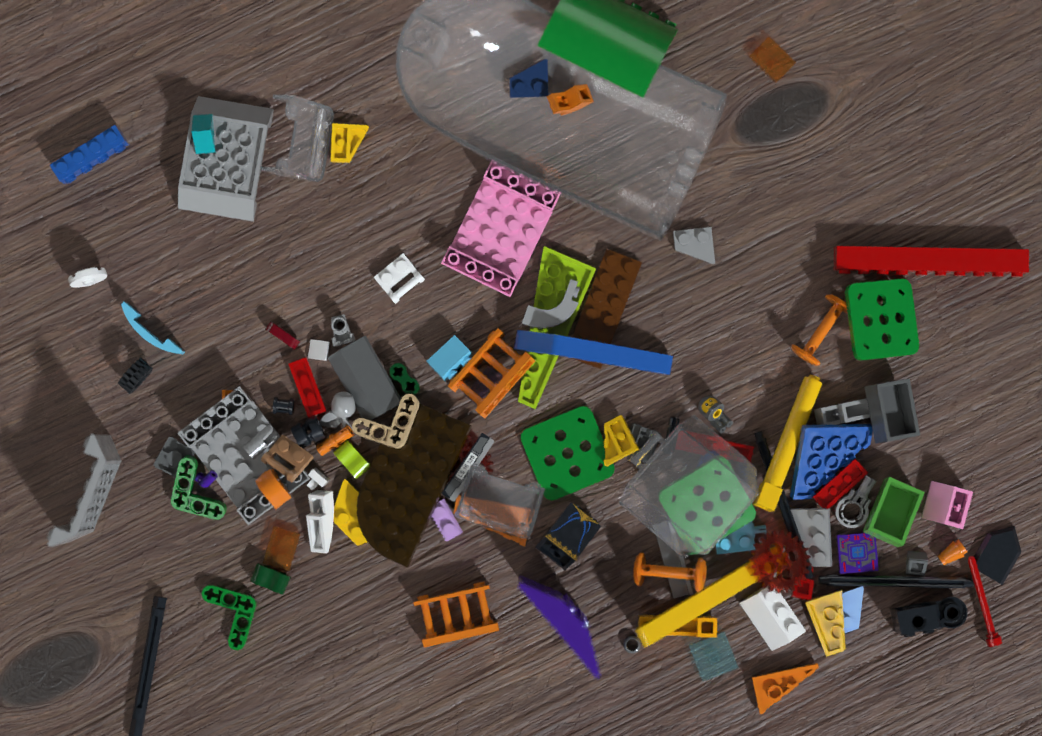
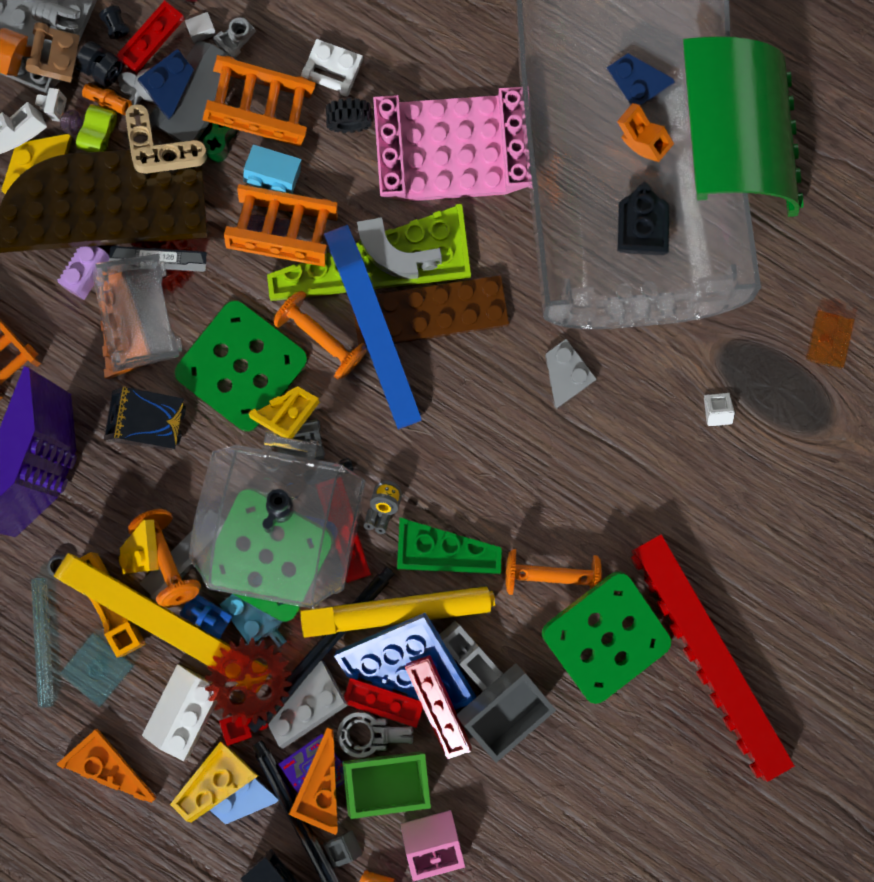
camera: 60 degrees right, 5 degrees down
(337, 473) = (71, 122): none -> plate
(352, 393) = (167, 81): none -> dark blue wing
(406, 358) = (247, 121): none -> orange fence
(442, 286) = (348, 115): none -> black tyre
(580, 389) = (291, 310): none -> orange hose
(627, 135) = (643, 223): none -> black tile
(655, 585) = (140, 550): none -> yellow wing
(675, 682) = (42, 642): none -> clear light blue axle
(689, 479) = (279, 509): none -> black piece
(721, 566) = (206, 616): none -> blue hips
(765, 391) = (439, 550): none -> green wing
(775, 159) = (718, 409): none -> white slope
(863, 451) = (438, 707): none -> tile
(874, 559) = (317, 794): none -> orange wing

